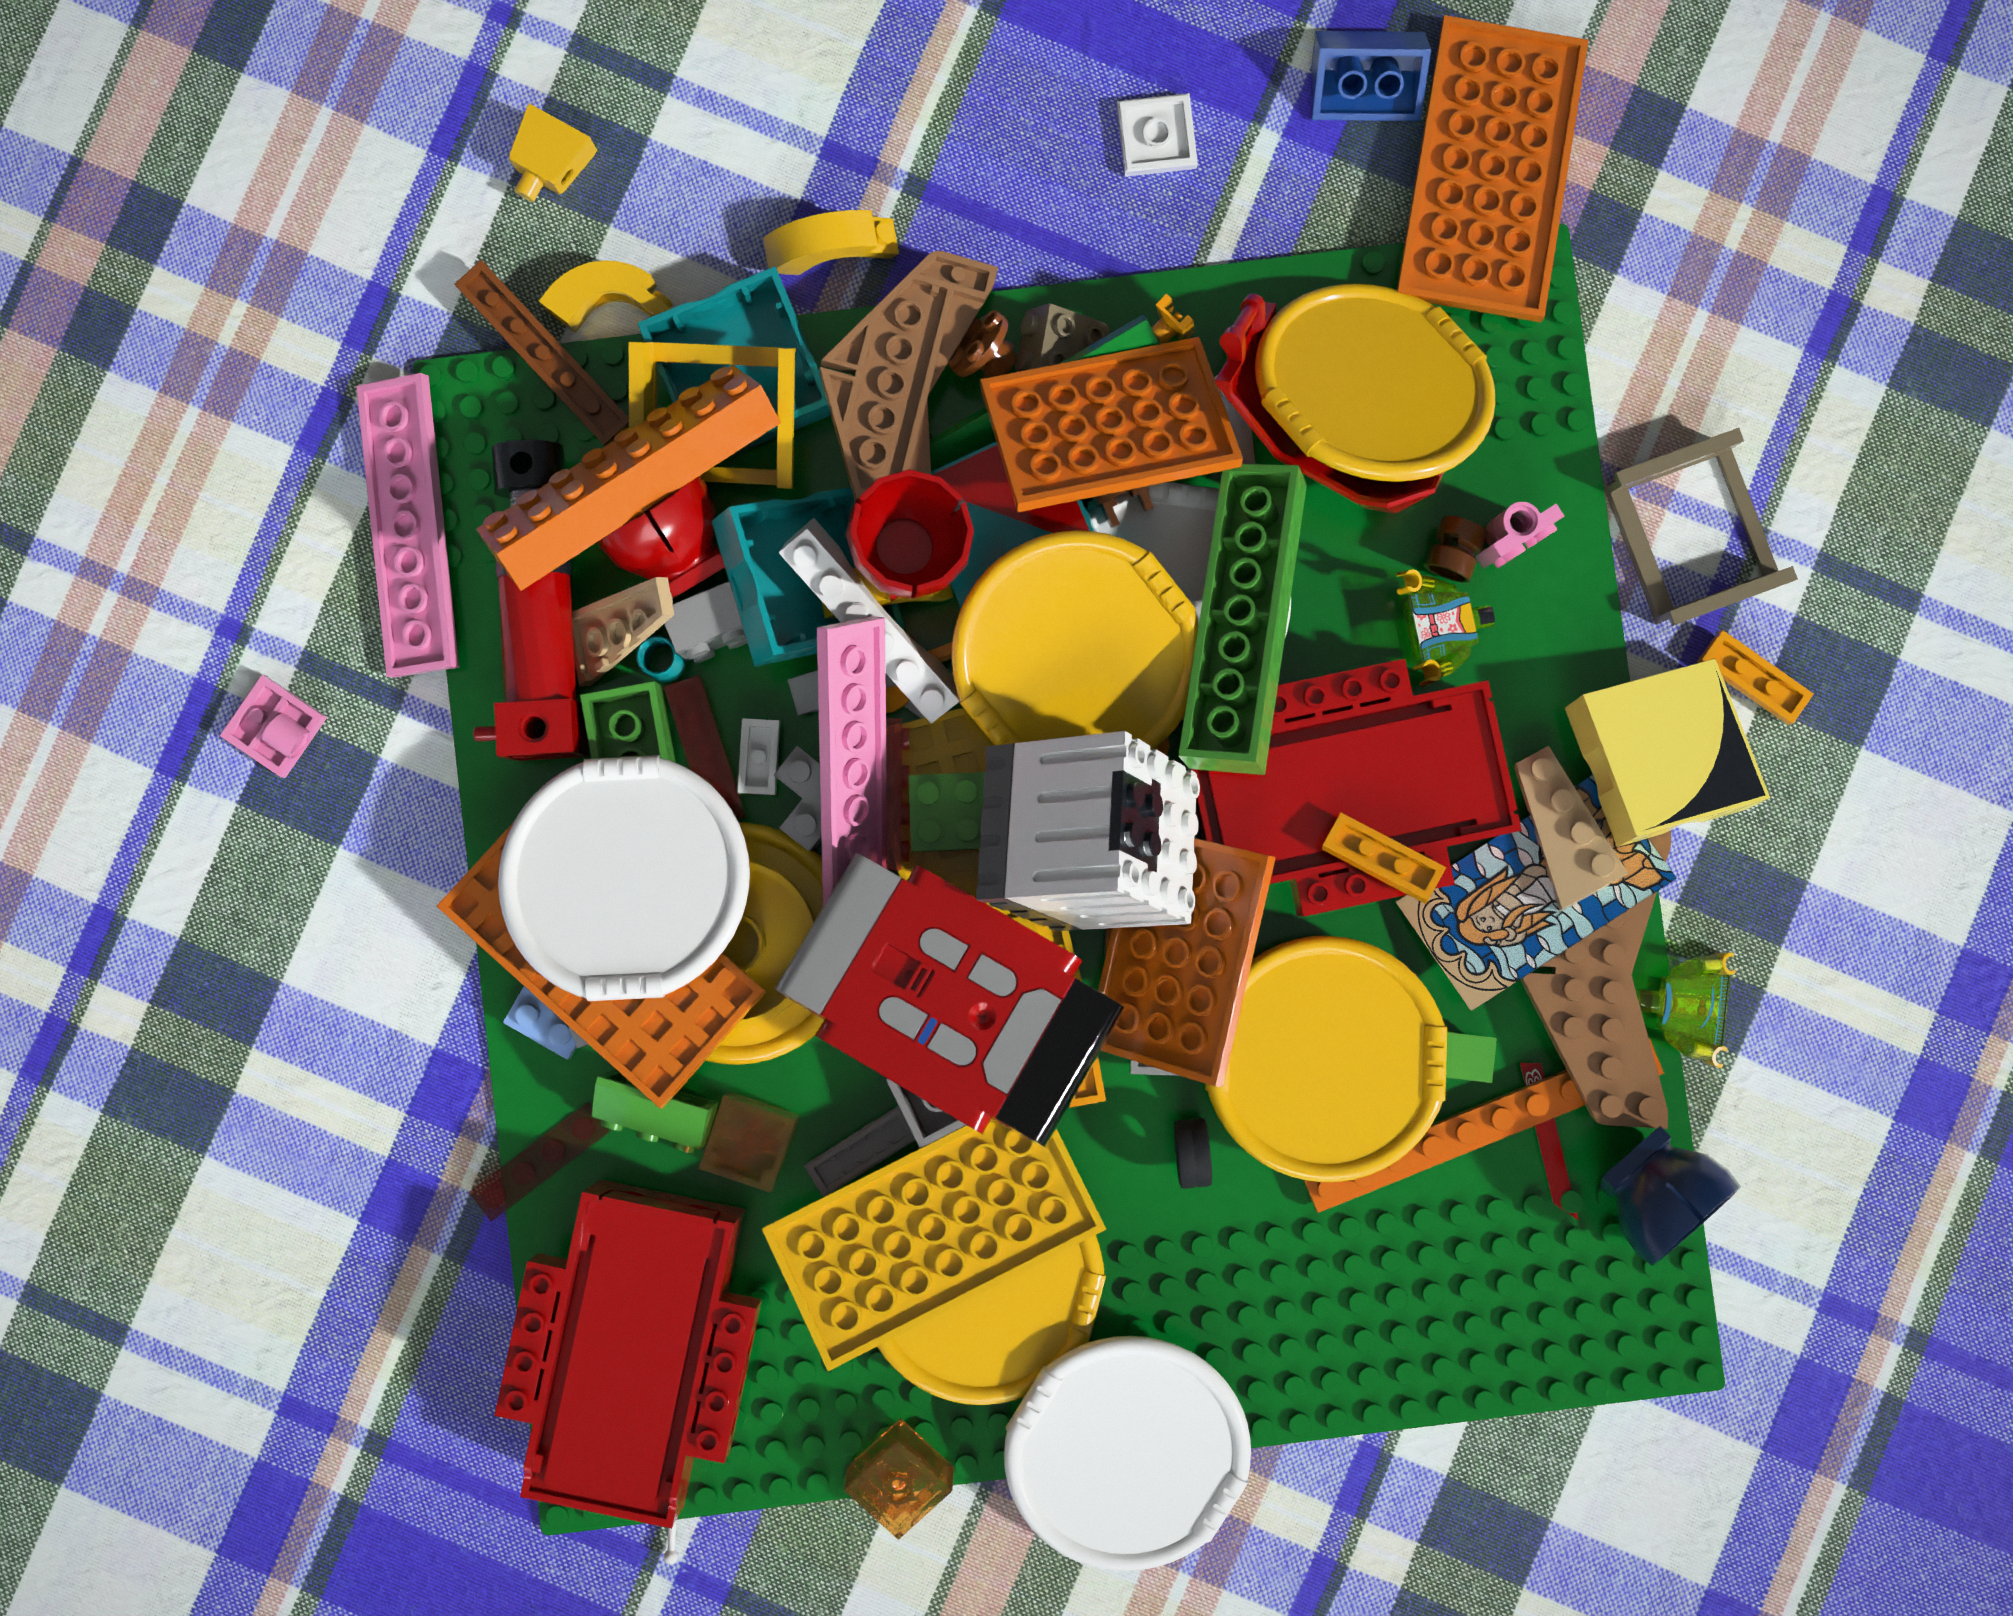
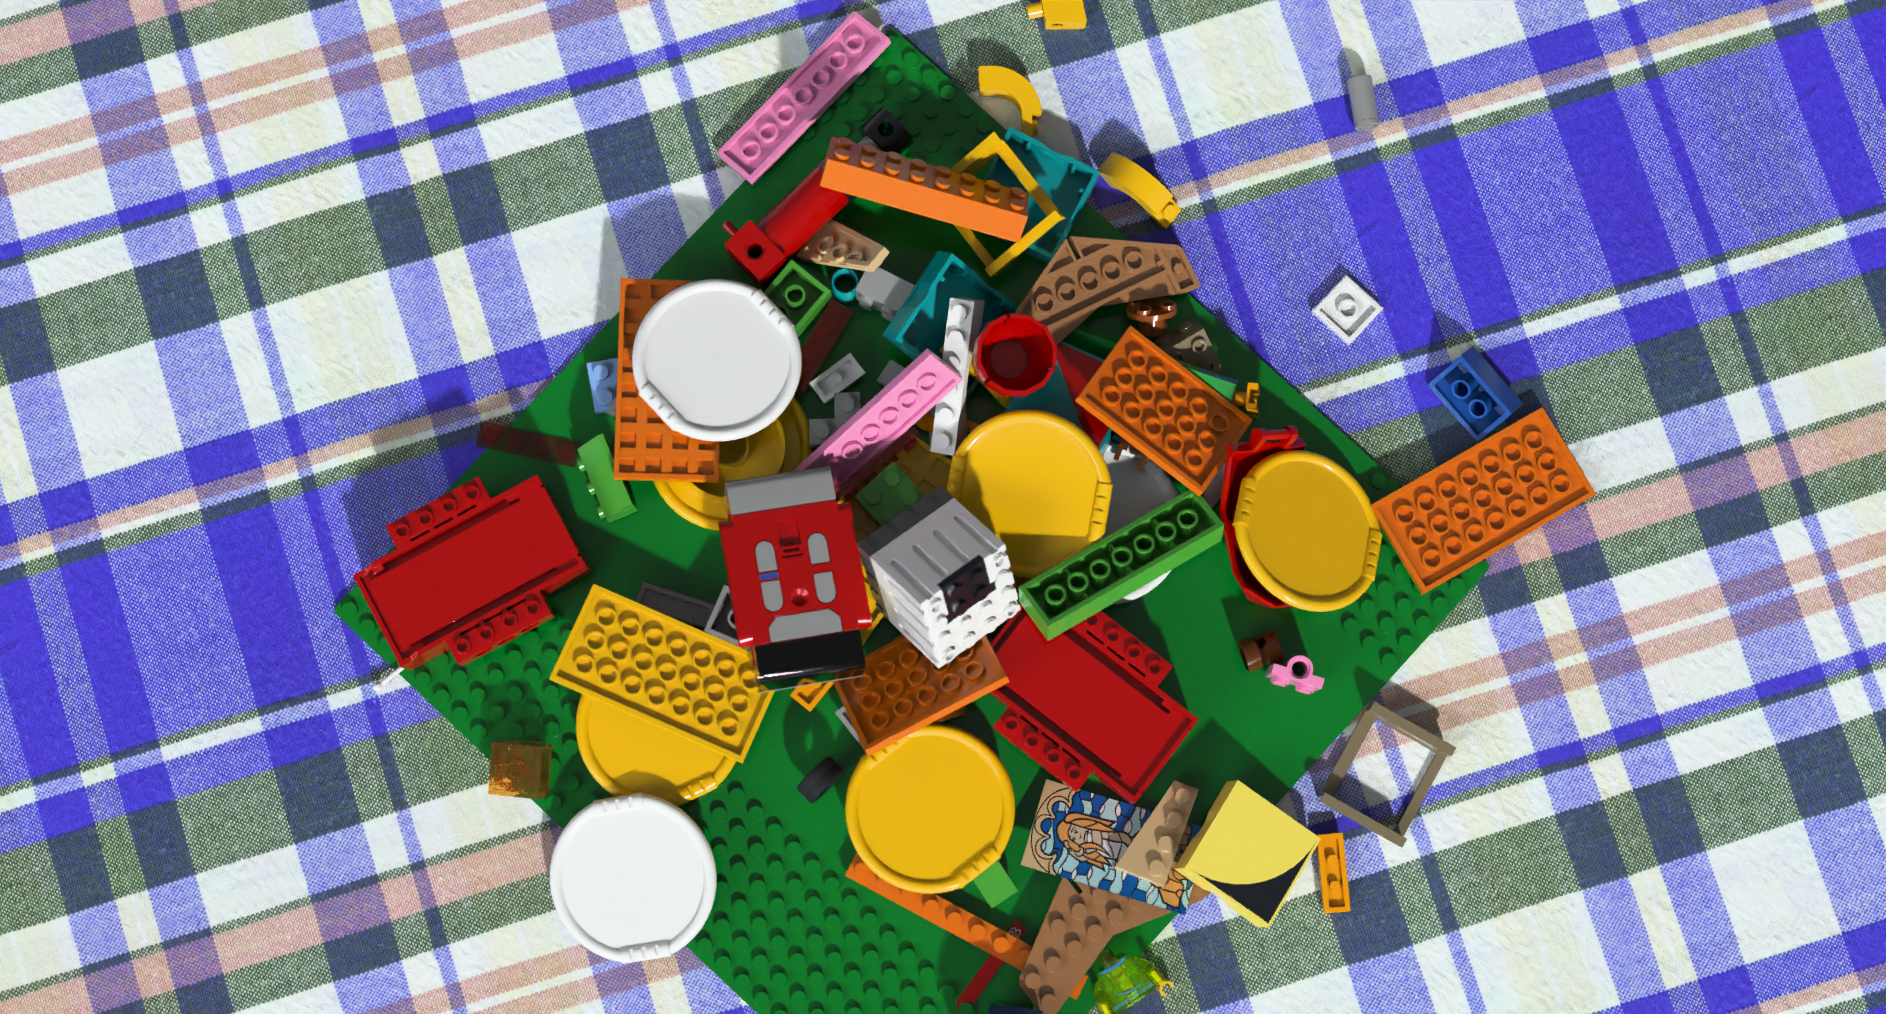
camera: 50 degrees right, 5 degrees down
(273, 726) = (641, 117): bright pink plate -> none
(543, 353) = (953, 91): dark orange plate -> none
(670, 539) = (910, 238): red plate -> none
(749, 1141) = (631, 542): clear orange container -> none
(1383, 858) = (1057, 740): light orange plate -> none
(1440, 624) = (1213, 676): torso -> none

